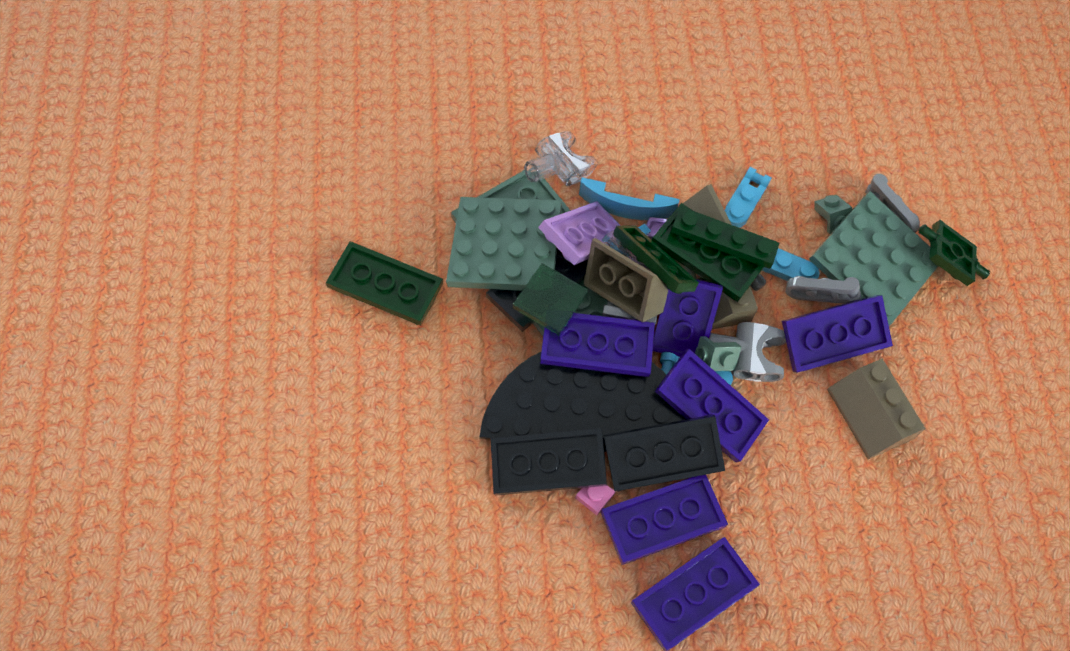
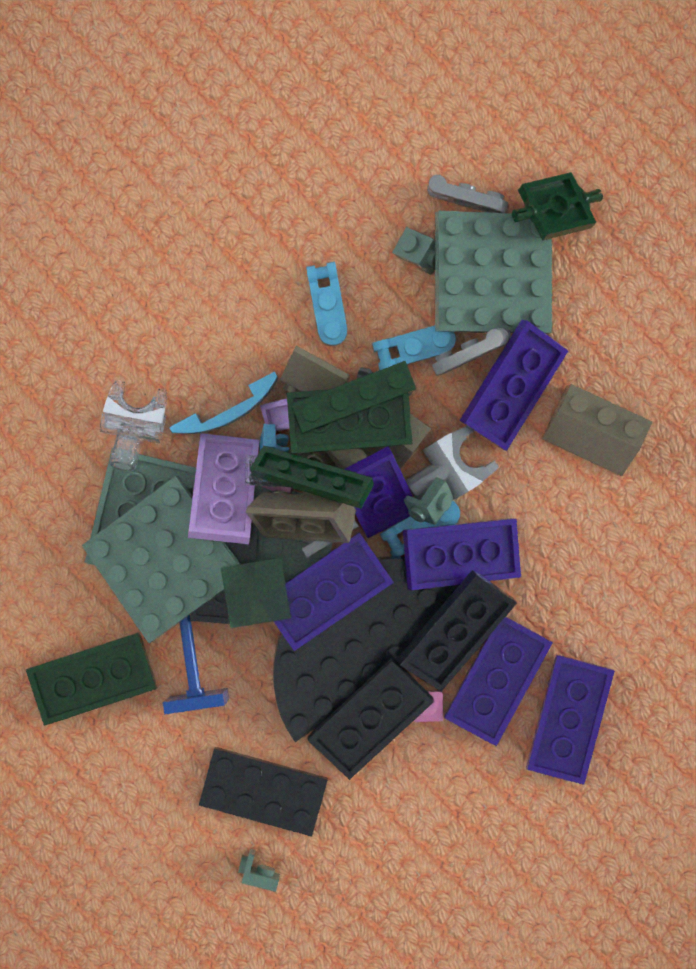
camera: 40 degrees left, 25 degrees up
(368, 506) = (260, 877): none -> sand green bracket
(425, 453) = (263, 791): none -> black plate
(443, 344) = (195, 697): none -> blue tile

